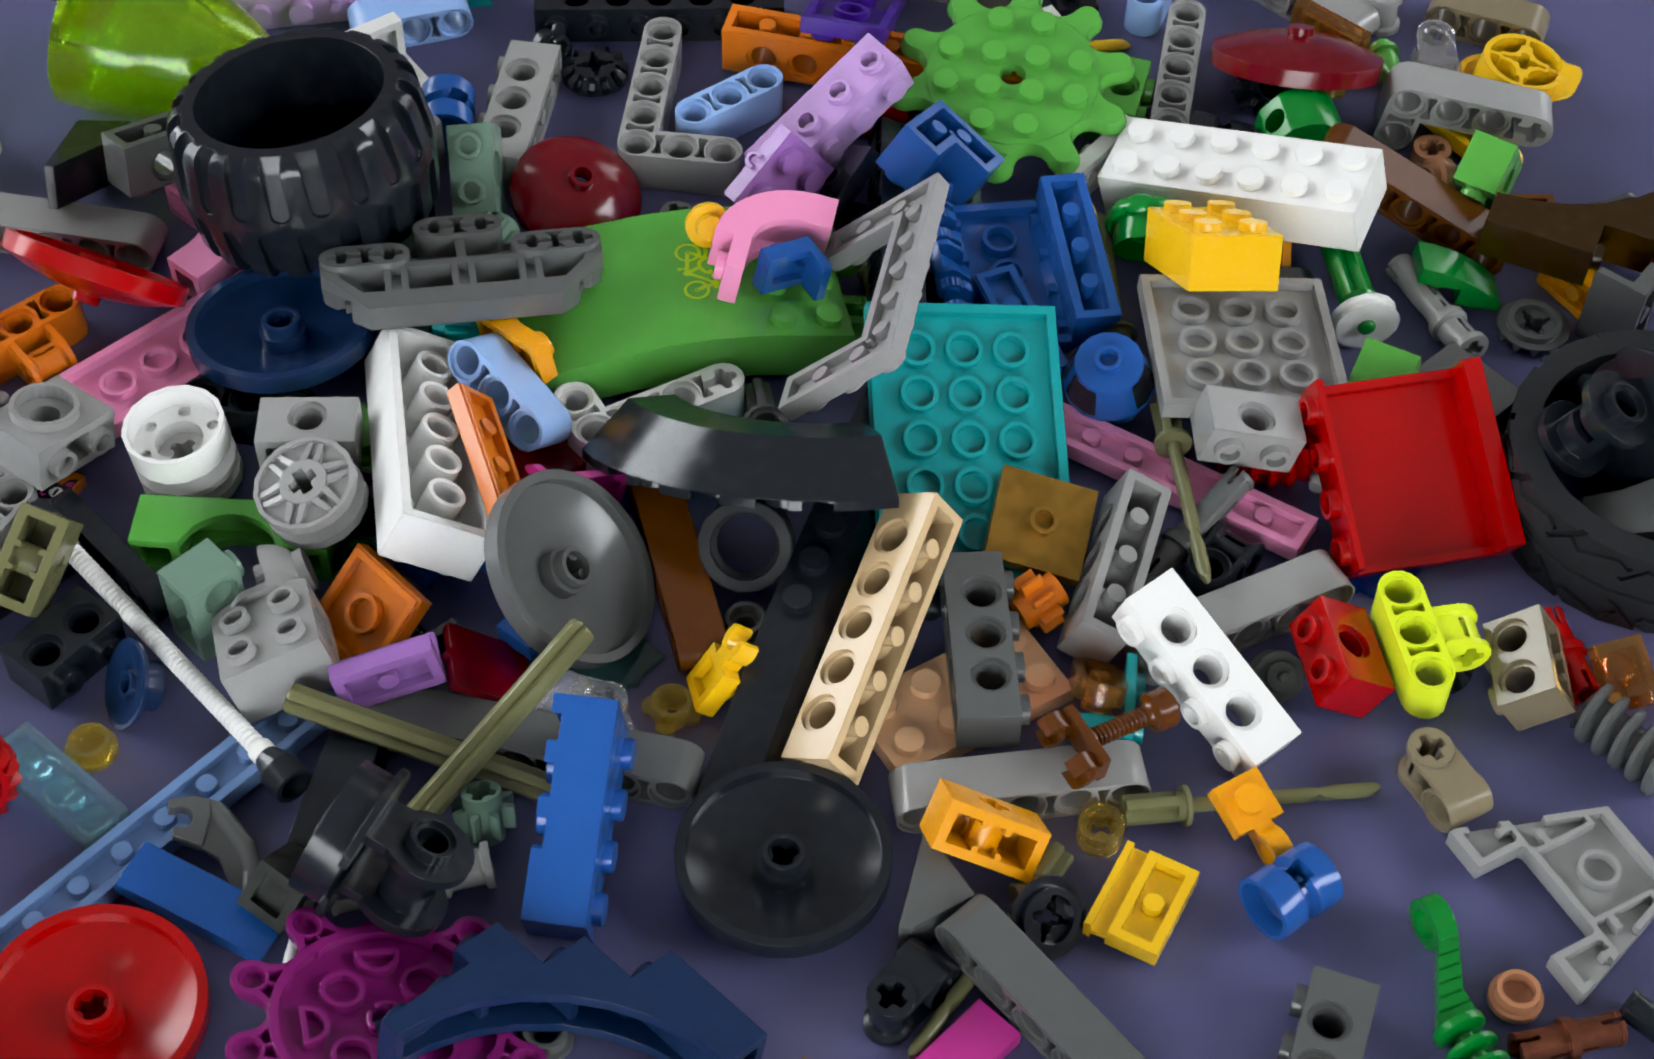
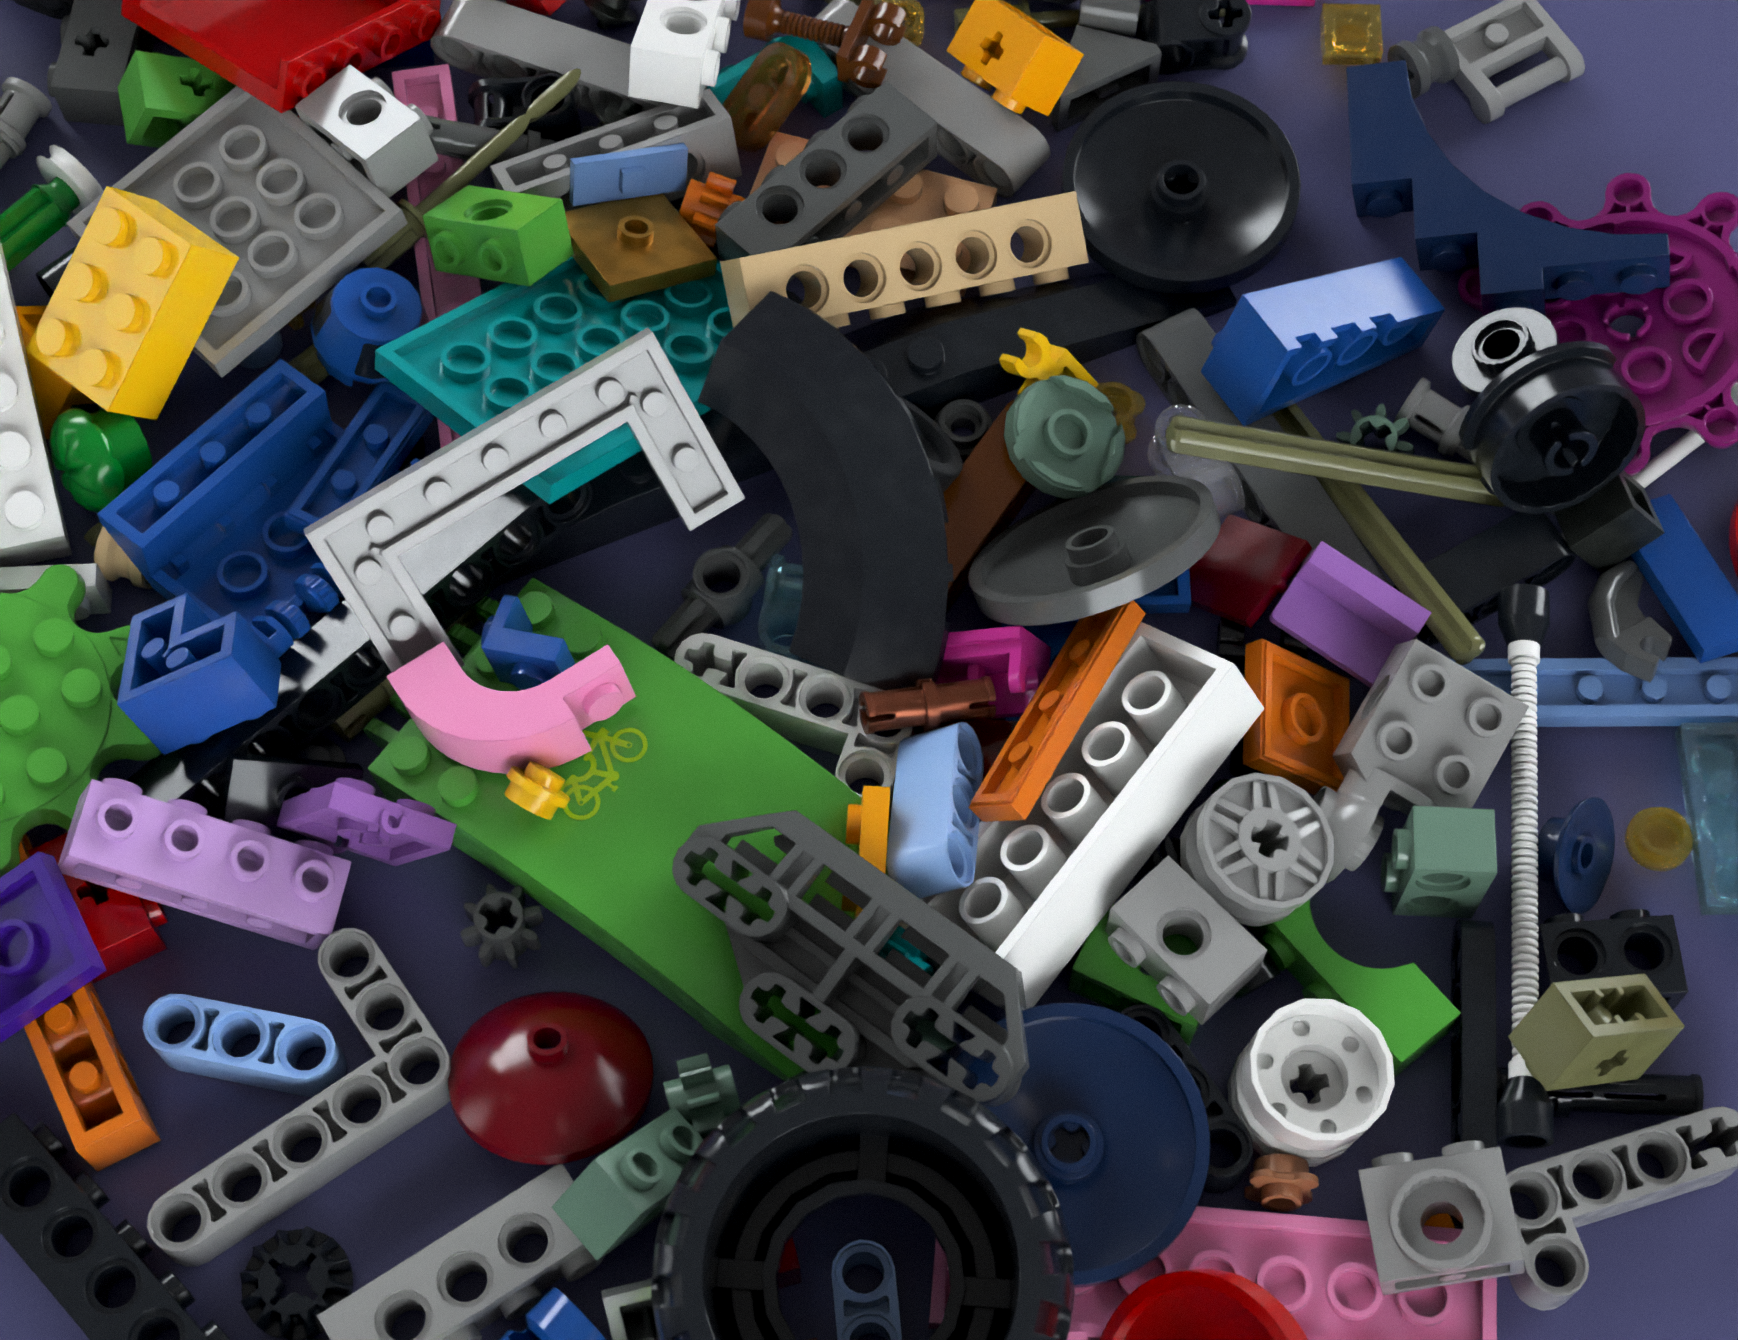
camera: 130 degrees left, 15 degrees up
(575, 431) = (927, 704): none -> copper pin
(668, 636) = (1064, 437): none -> sand green tile
(1092, 548) = (628, 174): none -> medium blue piece
(1103, 444) = (498, 235): none -> bright green brick

